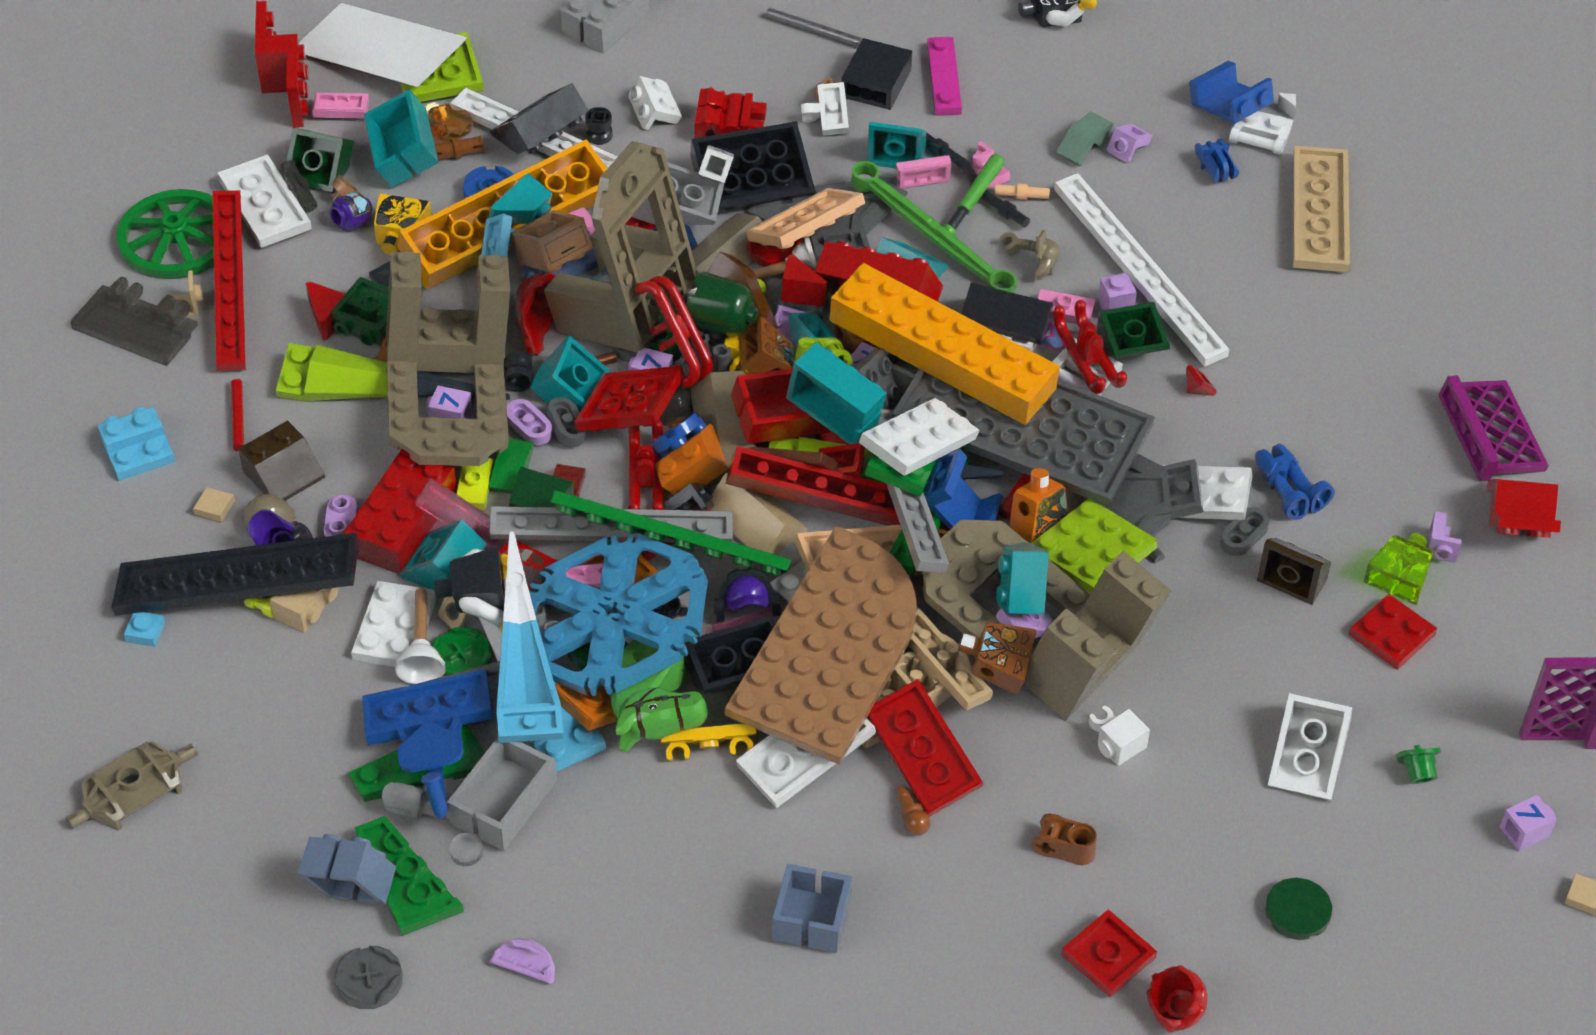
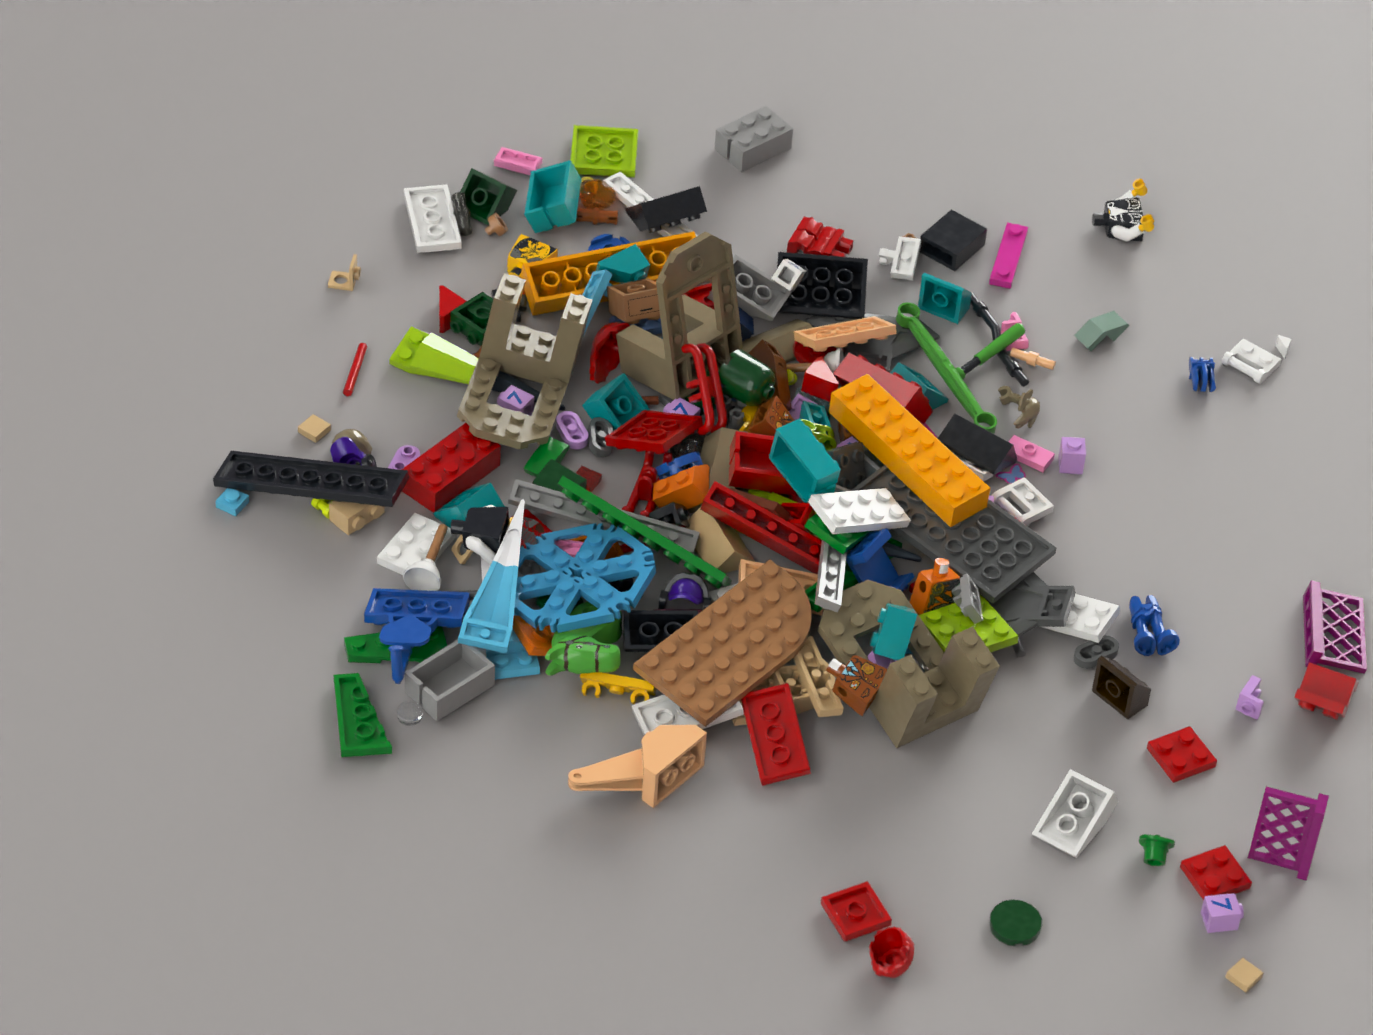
camera: 15 degrees right, 5 degrees down
(111, 800) = (166, 608): dark tan plate -> none
(135, 442) = (272, 369): medium azure plate -> none
(138, 328) = (302, 285): clear smoke hinge -> none
(173, 228) = (356, 222): green wheel -> none
(228, 281) = (383, 269): red plate -> none
(280, 462) = (374, 410): slope -> none
(281, 64) = (481, 118): red bracket -> none
(342, 865) = (316, 695): sand blue piece -> none
(351, 211) = (495, 242): dark purple head -> none
(368, 977) = (307, 778): dark grey tile -> none
(380, 44) = (565, 122): white sticker -> none
(407, 800) = (378, 668): light grey arm -> none
(450, 507) = (485, 472): clear pink tile -> none
(463, 649) = (459, 576): green tile -> none
(474, 483) = (512, 464): neon yellow plate -> none
(518, 371) = (577, 391): black wheel -> none
(526, 958) = (424, 795): lavender plate -> none
(598, 125) = (714, 223): black wheel -> none
(653, 101) = (765, 217): white bracket -> none
(800, 834) = (657, 769): none -> light nougat slope
(810, 915) = (638, 822): sand blue piece -> none
(813, 27) = (916, 191): flat silver bar -> none
(916, 820) = (750, 781): dark orange bar -> none
(923, 171) = (958, 323): bright pink plate -> none
(1065, 840) = (857, 826): dark orange piece -> none
(1083, 506) = (968, 599): none -> light grey plate
(1087, 349) = (1028, 485): red piece -> none
(1120, 735) = (931, 768): white brick -> none
(1126, 140) = (1136, 339): lavender bracket -> none
(1132, 330) = (1070, 481): dark green slope -> none
(1142, 270) = (1102, 441): white plate -> none
(1198, 382) = (1110, 535): red slope -> none
(1225, 97) = (1232, 325): blue panel -> none
(1321, 209) = (1271, 432): tan plate -> none
(1400, 567) = (1208, 709): clear neon green torso -> none
(1497, 773) = (1215, 873): none -> red plate

